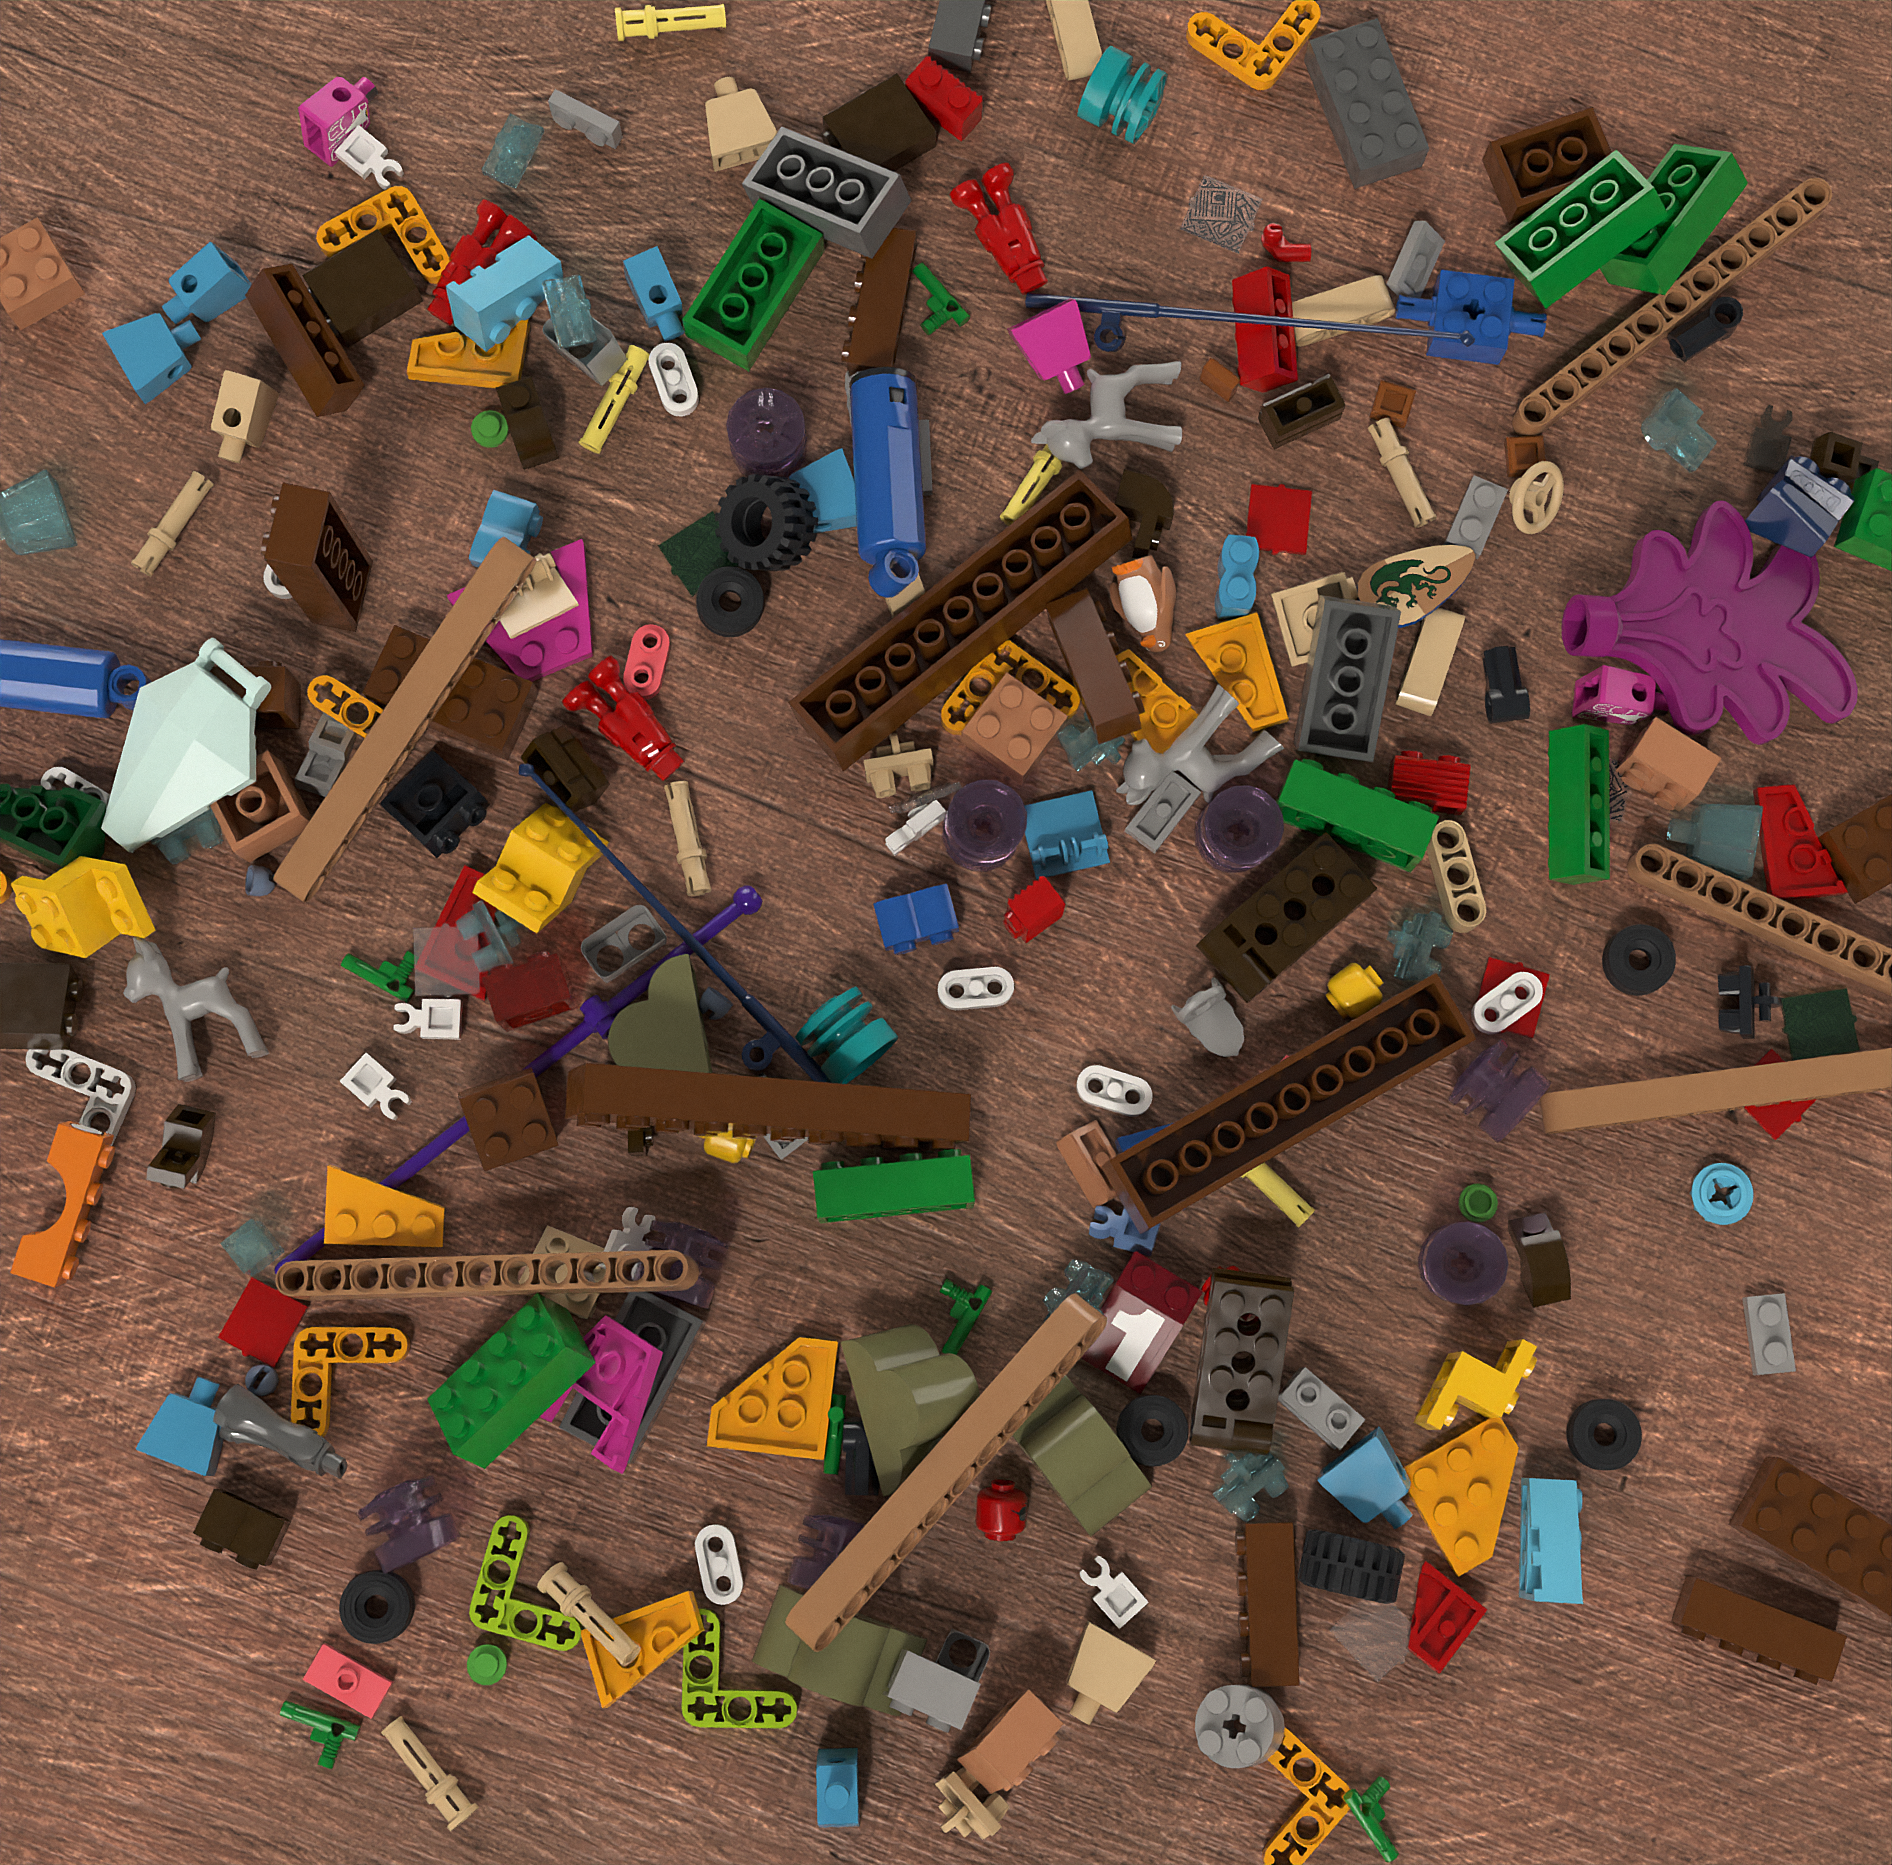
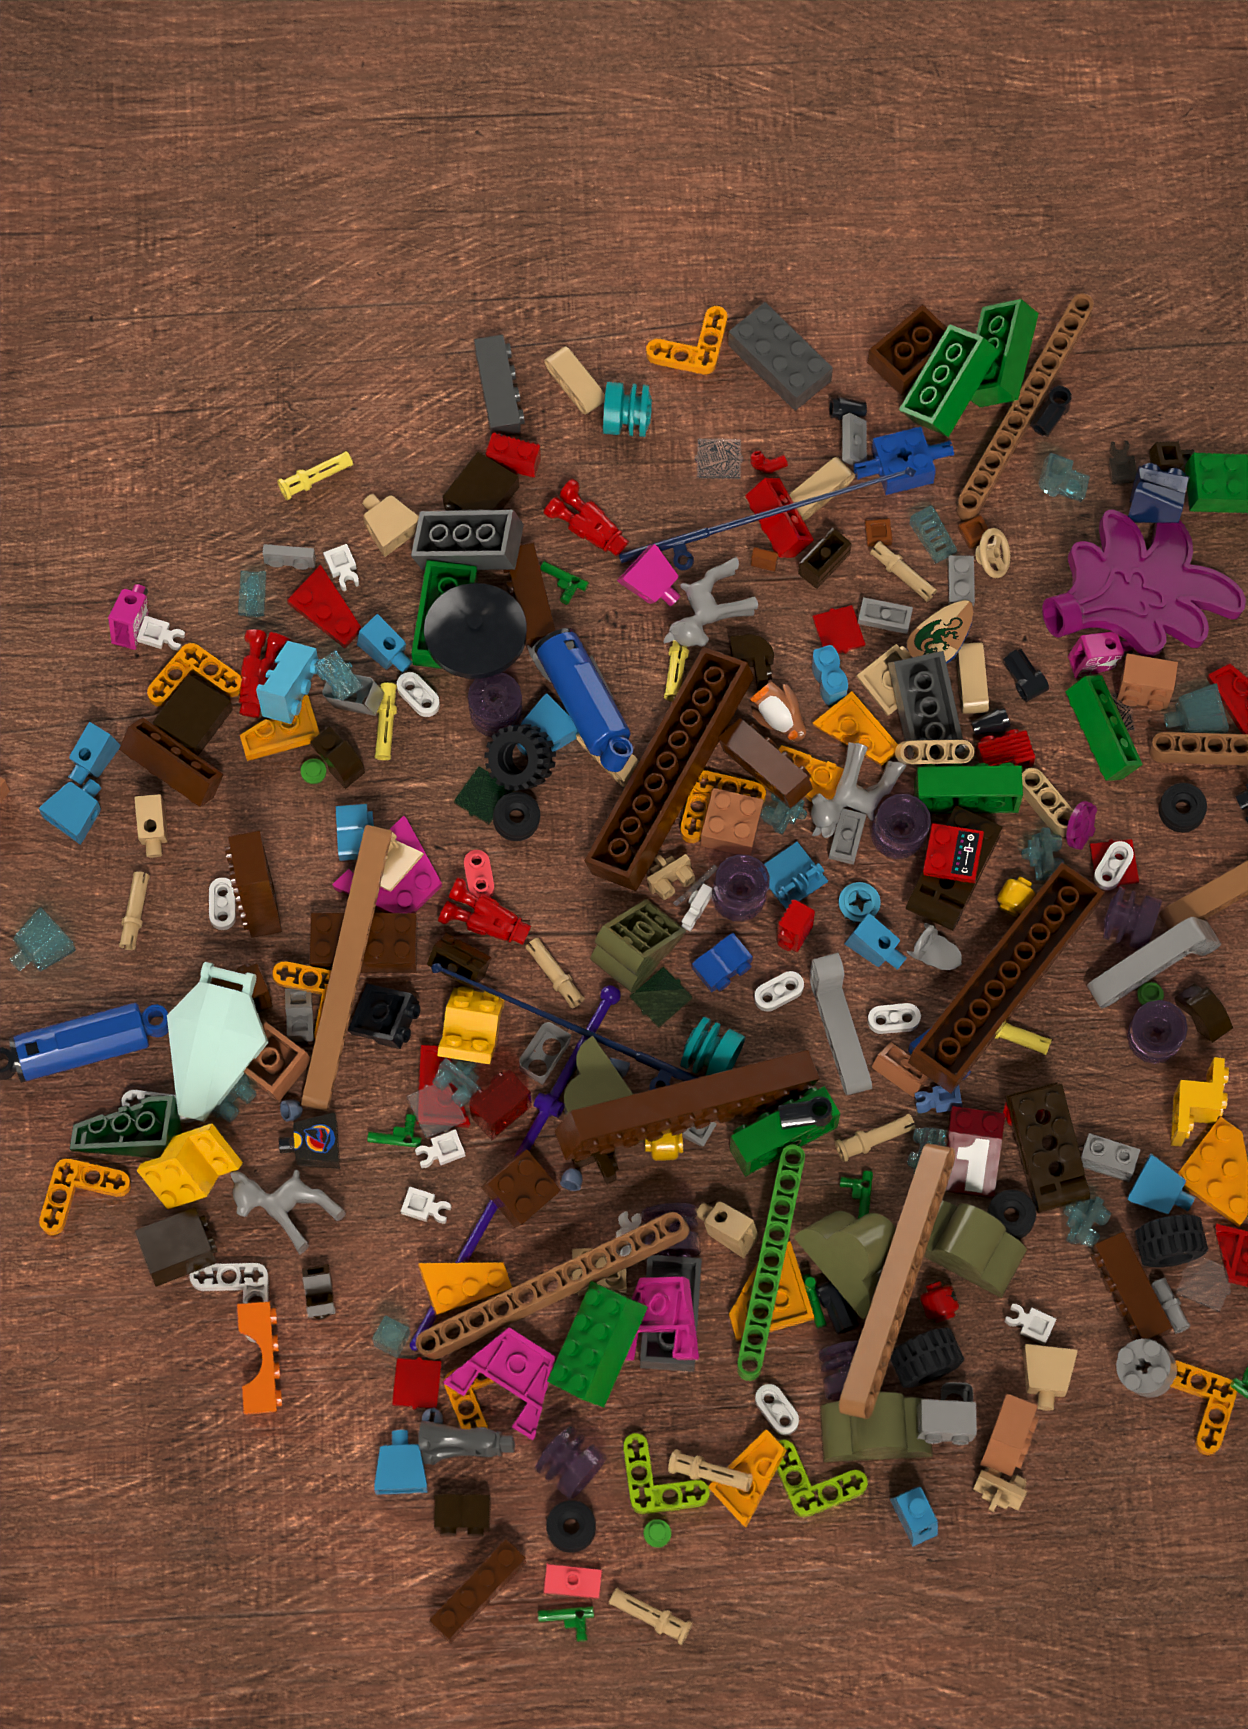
camera: 20 degrees left, 10 degrees down
(213, 1643) = (477, 1591): none -> reddish brown brick
(269, 938) = (314, 1142): none -> clear smoke torso
(393, 1359) = (517, 1367): none -> dark pink wing
(585, 1136) = (572, 1180): none -> sand blue hinge
(604, 209) = (325, 608): none -> red wing
(649, 158) = (341, 564): none -> white plate
(766, 1298) = (729, 1227): none -> tan torso
(779, 323) = (475, 631): none -> black dish
(779, 1375) = (771, 1249): none -> bright green beam
(810, 844) = (635, 944): none -> olive brick
(816, 929) = (661, 997): none -> clear green piece
(919, 1185) = (802, 1114): none -> black piece
(946, 1586) = (926, 1357): none -> black tyre
(996, 1244) = (862, 1142): none -> tan pin
(1034, 1074) = (827, 983): none -> light grey beam
(1122, 966) = (875, 943): none -> dark azure torso
(1153, 900) = (865, 893): none -> medium azure gear
(1292, 899) = (953, 853): none -> red plate
(1312, 1648) = (1170, 1305): none -> light grey pin
(1343, 758) = (946, 748): none -> tan beam
(1349, 524) = (885, 615): none -> light grey plate
(1423, 208) = (841, 406): none -> black cone
(1429, 733) = (992, 722): none -> black cone
(1465, 405) = (930, 514): none -> clear light blue slope
(1487, 929) = (1081, 825): none -> magenta wheel
(1560, 1154) = (1185, 938): none -> light grey beam

